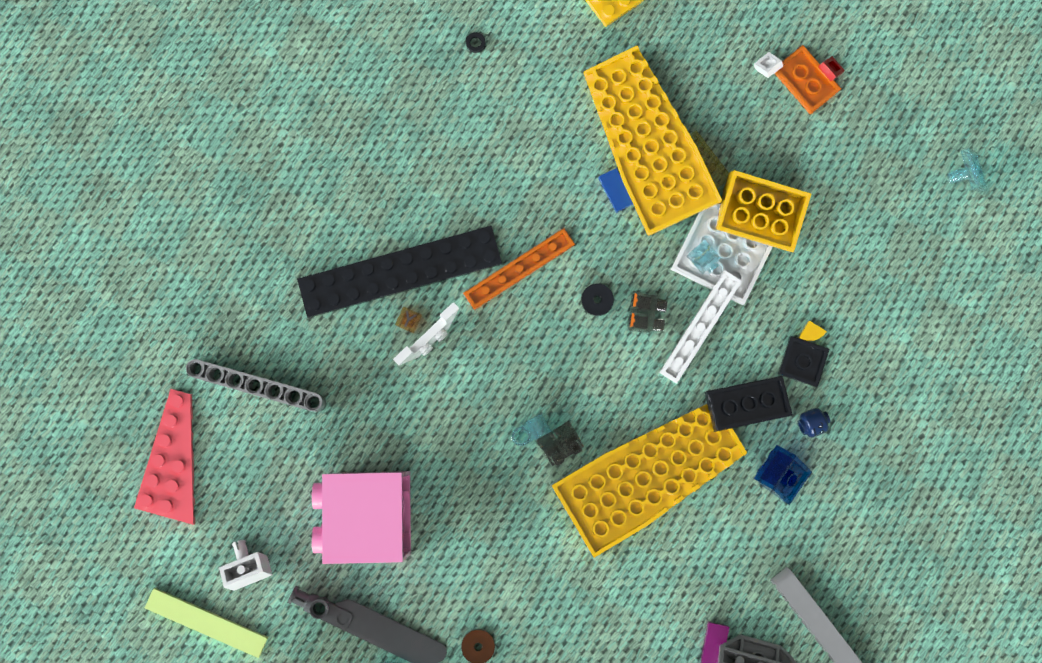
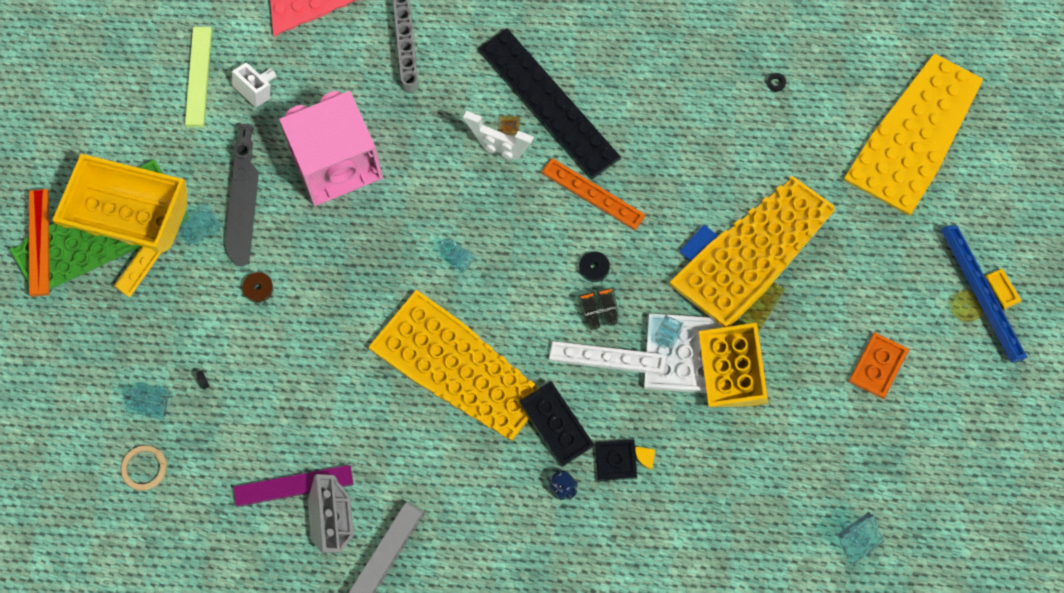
camera: 75 degrees right, 15 degrees down
(565, 445) = (455, 281): clear smoke hips -> none
(768, 64) = (875, 325): white tile -> none
(783, 474) = (505, 478): clear blue slope -> none
(831, 68) = (898, 381): red tile -> none

